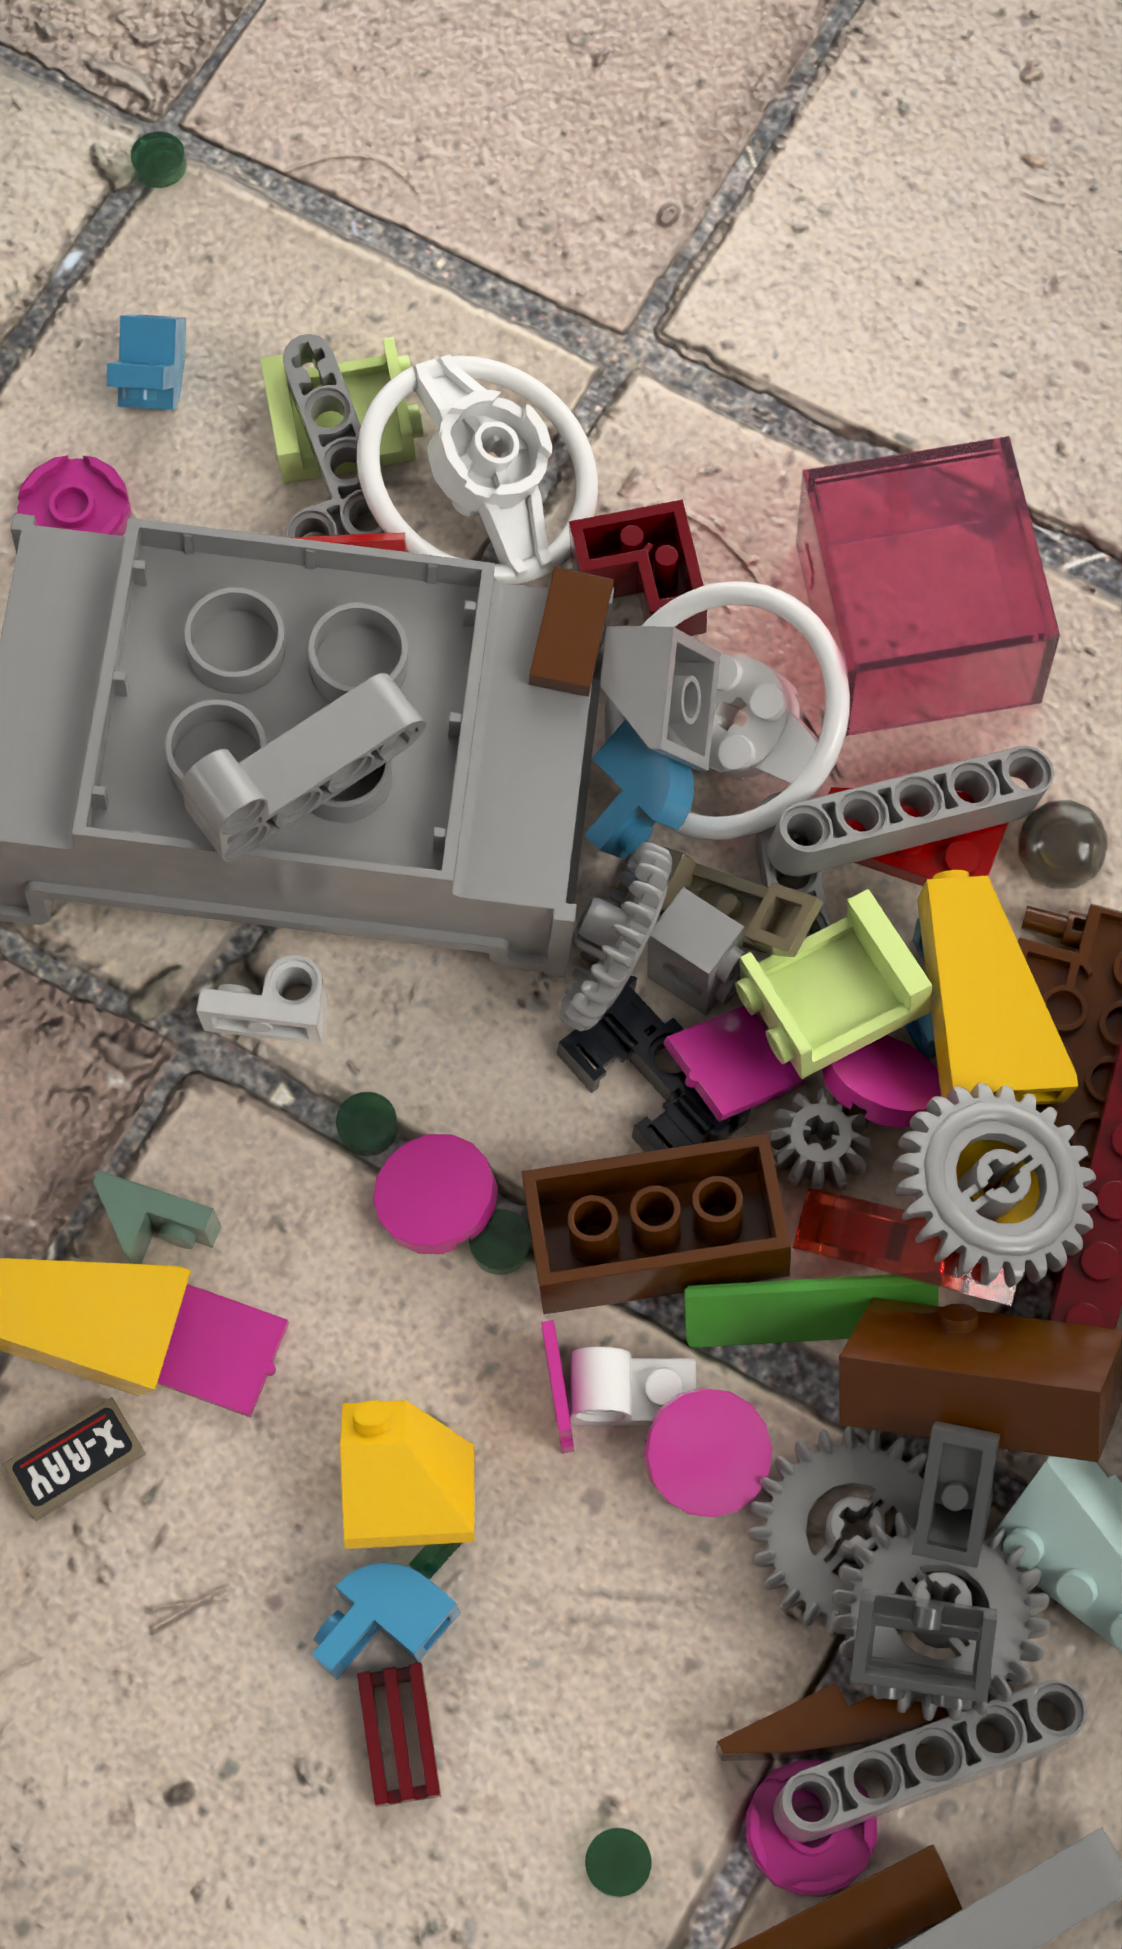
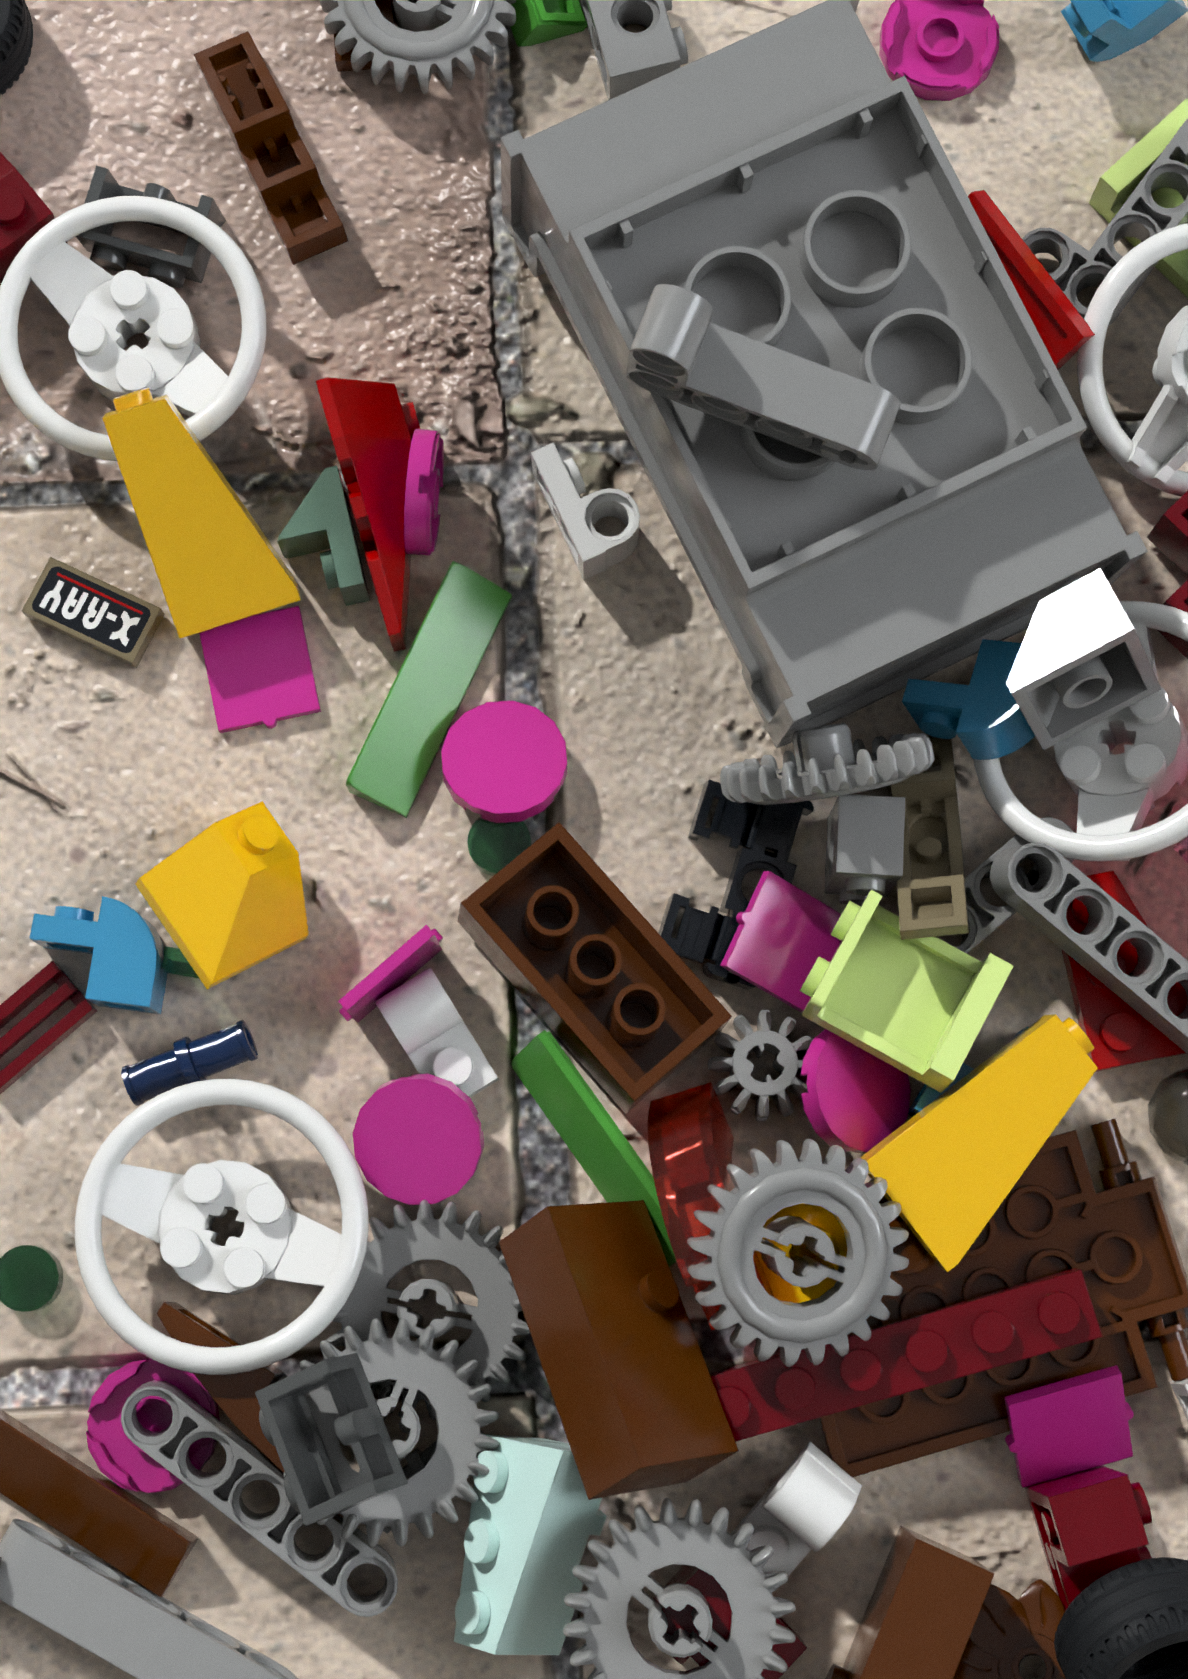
camera: 55 degrees right, 10 degrees up
(95, 1131) = (373, 450): none -> red wedge
(172, 1119) = (422, 492): none -> dark pink tile
(334, 1220) = (428, 690): none -> bright green slope
(367, 1123) = (534, 663): clear green tile -> none
(521, 1607) = (189, 1062): none -> dark blue pin
(571, 631) = (1073, 540): reddish brown tile -> none
(716, 1621) = (180, 1217): none -> white piece
(956, 1494) = (490, 1385): dark grey slope -> none

